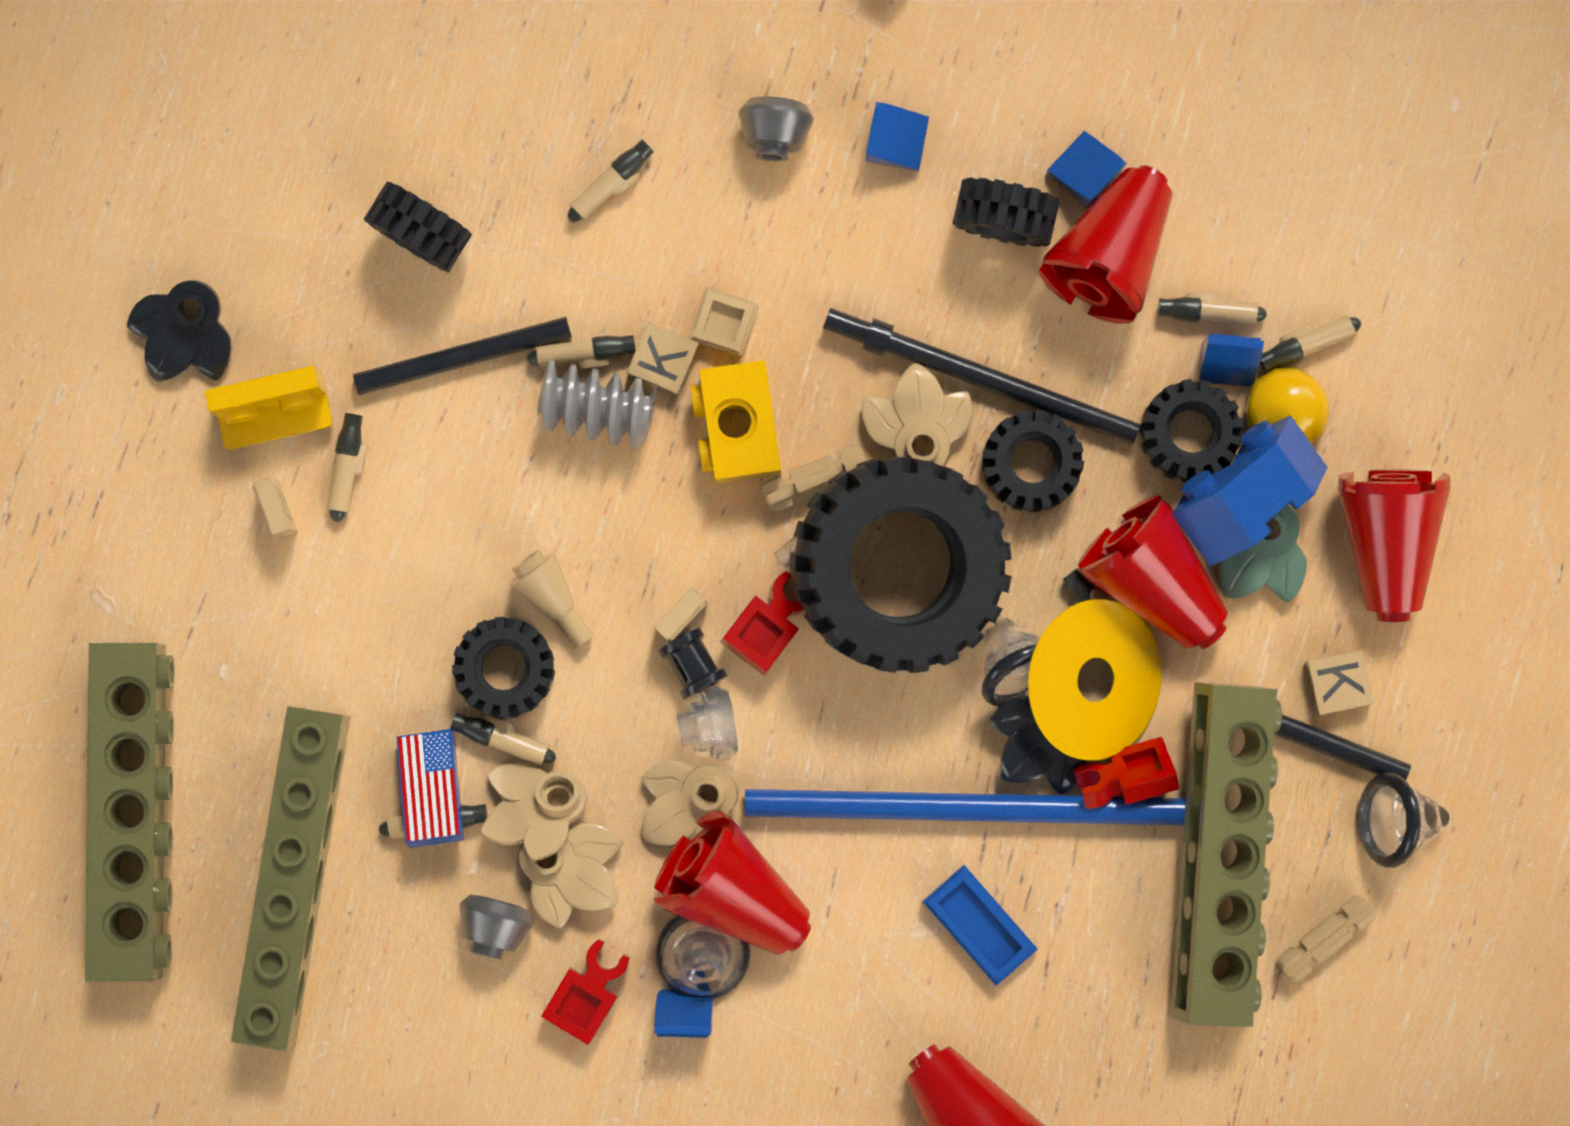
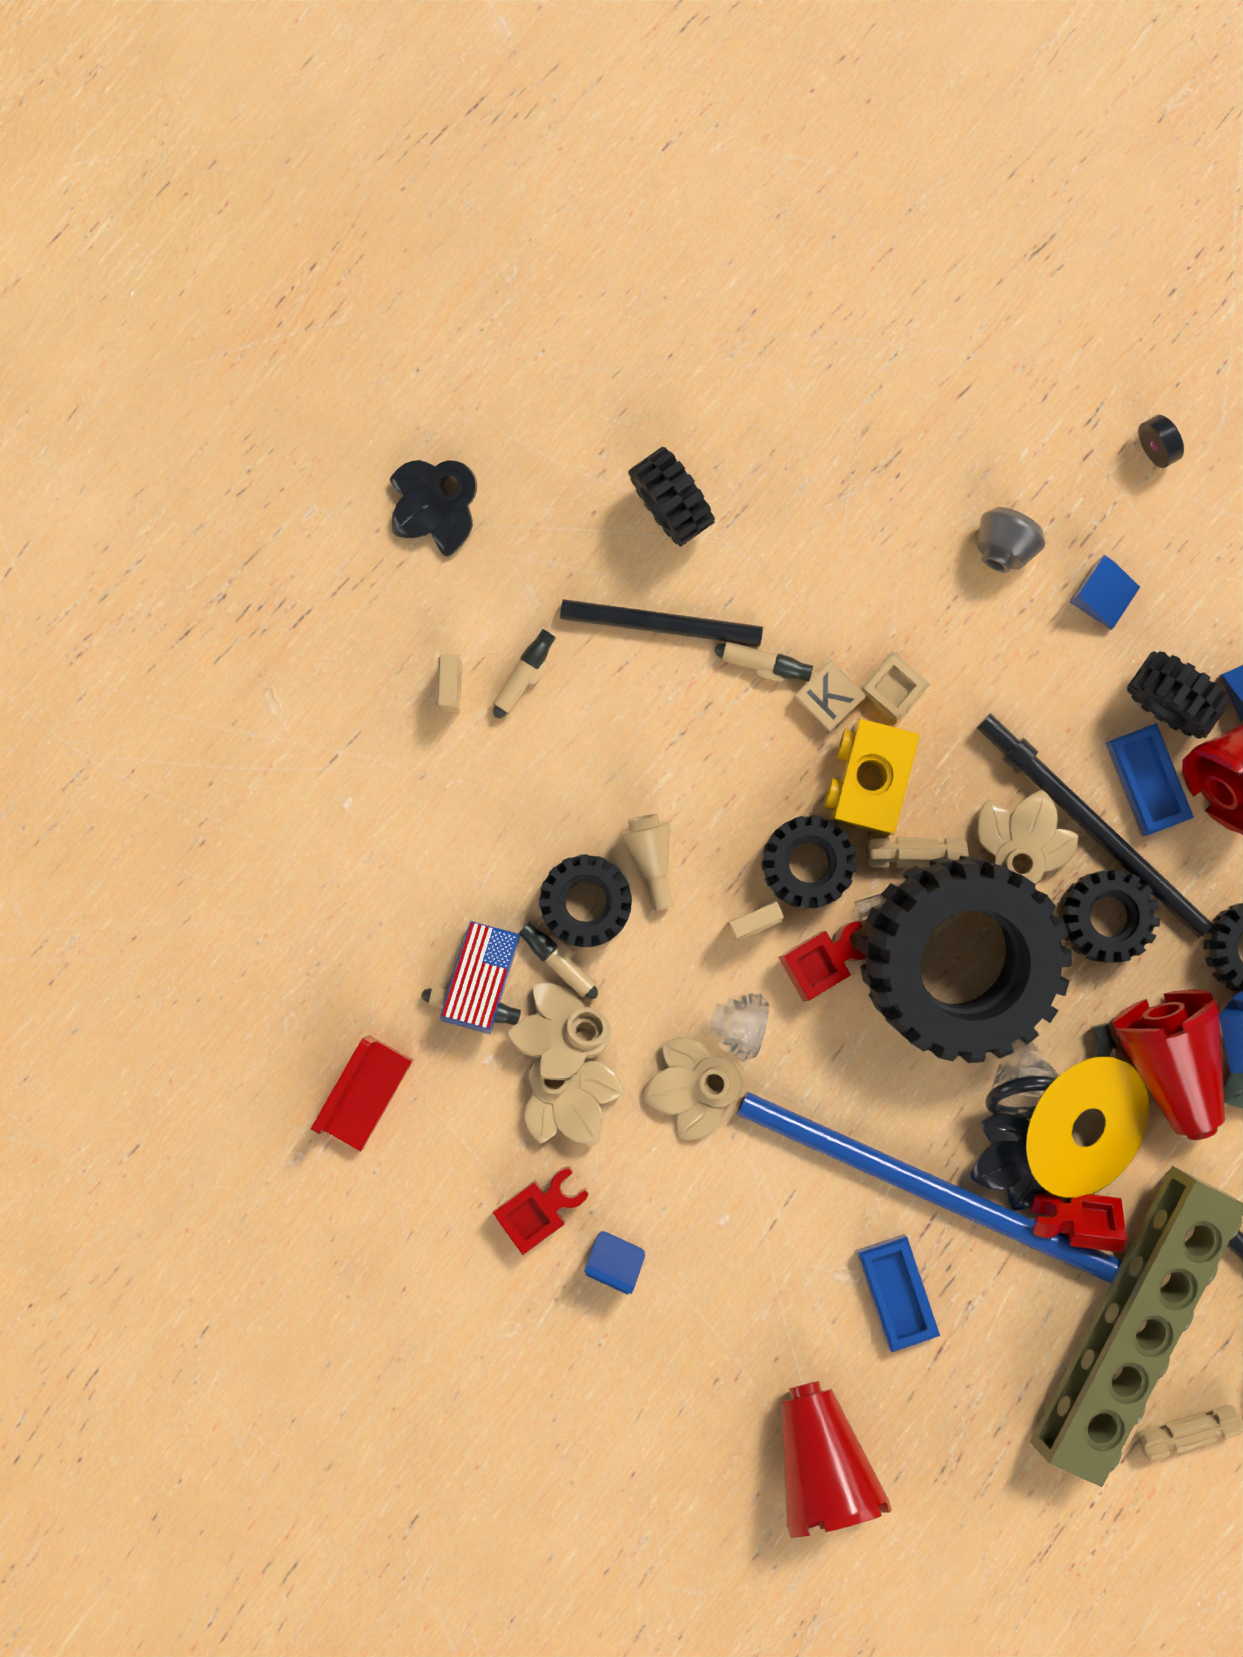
camera: 20 degrees right, 0 degrees up
(108, 952) = (149, 1000): olive brick -> none
(271, 407) = (482, 597): yellow bracket -> none
(290, 879) = (328, 1005): olive brick -> none
(361, 953) = (362, 1092): none -> red panel
(493, 925) = (485, 1117): flat silver cone -> none
(596, 405) = (758, 711): light grey piece -> none
(612, 182) = (848, 529): piece -> none
(692, 663) = (747, 966): black bush -> none
(700, 959) = (651, 1215): clear hat -> none
(703, 500) = (839, 854): none -> black tyre
(731, 888) = (701, 1172): red cone -> none
(1018, 306) = (1149, 780): none -> blue tile

